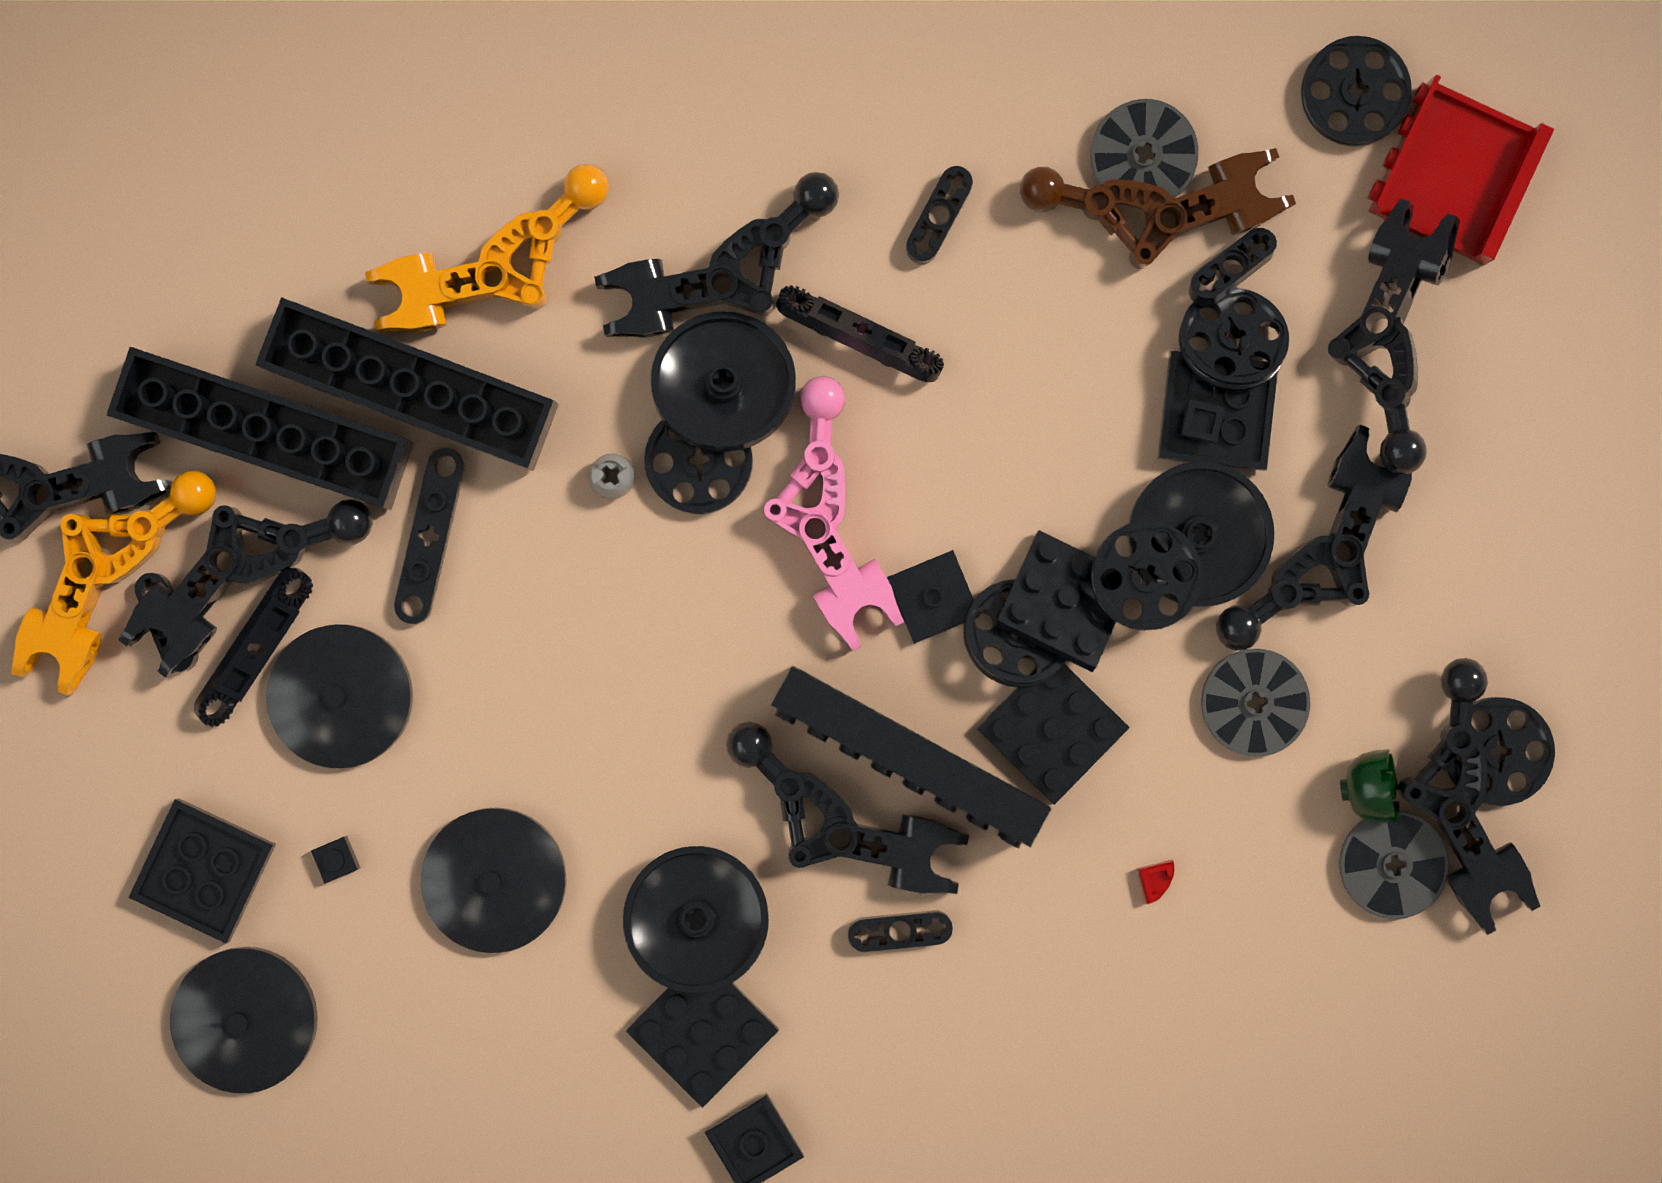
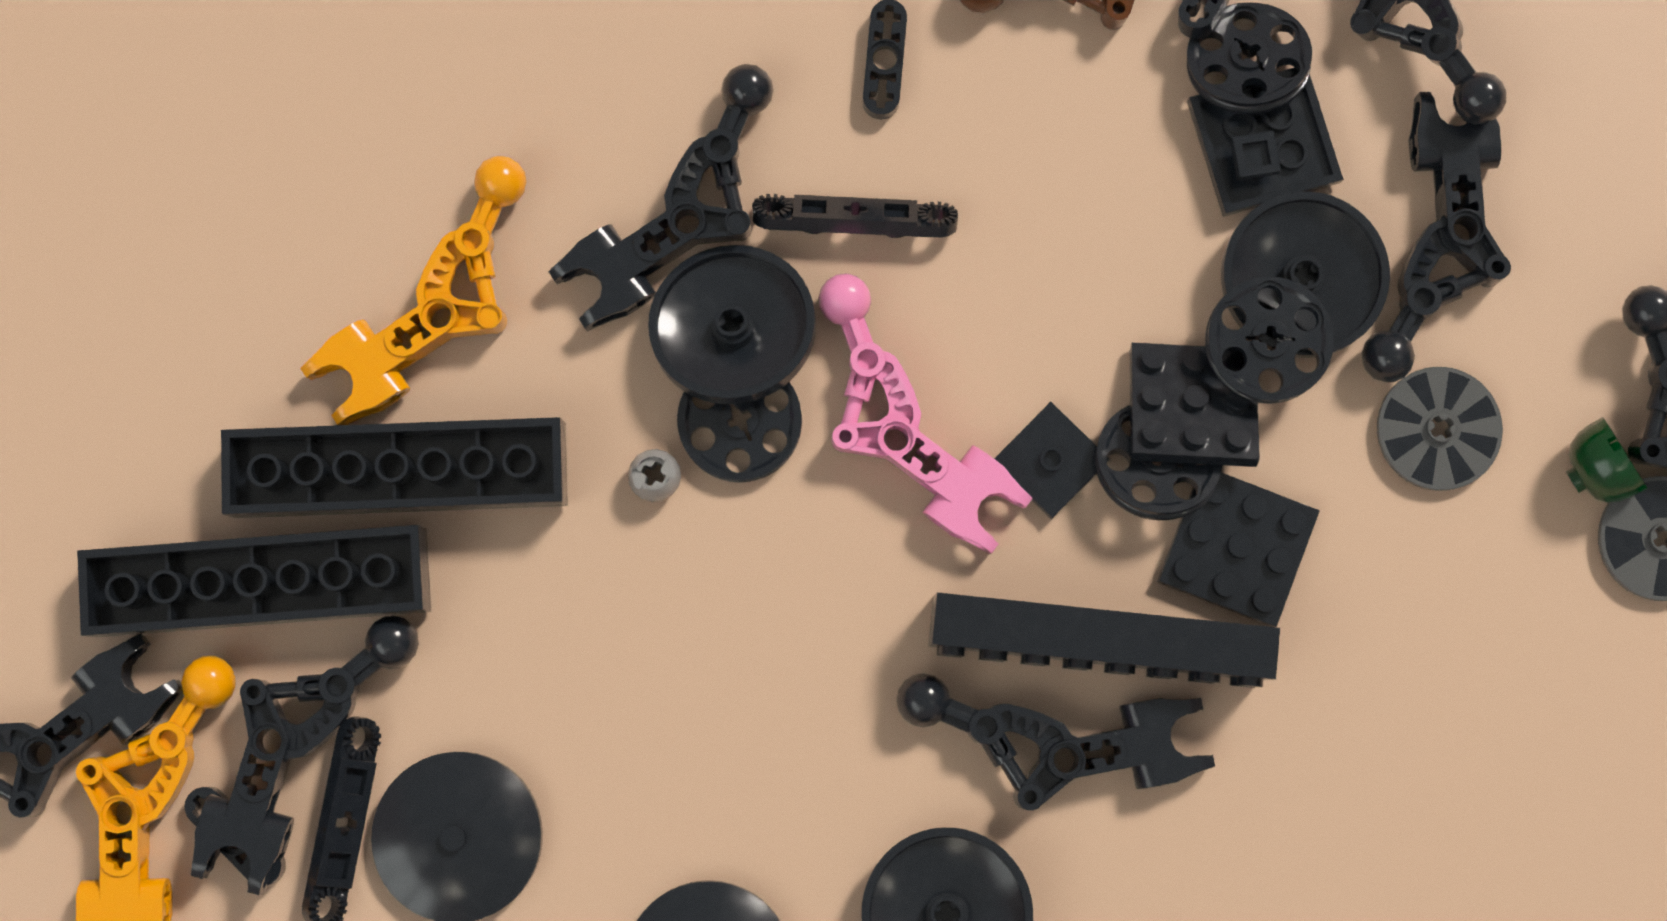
camera: 25 degrees left, 5 degrees down
(424, 563) = (488, 653): black piece -> none
(926, 920) = (1203, 827): black beam -> none
(1156, 879) = (1418, 662): red tile -> none

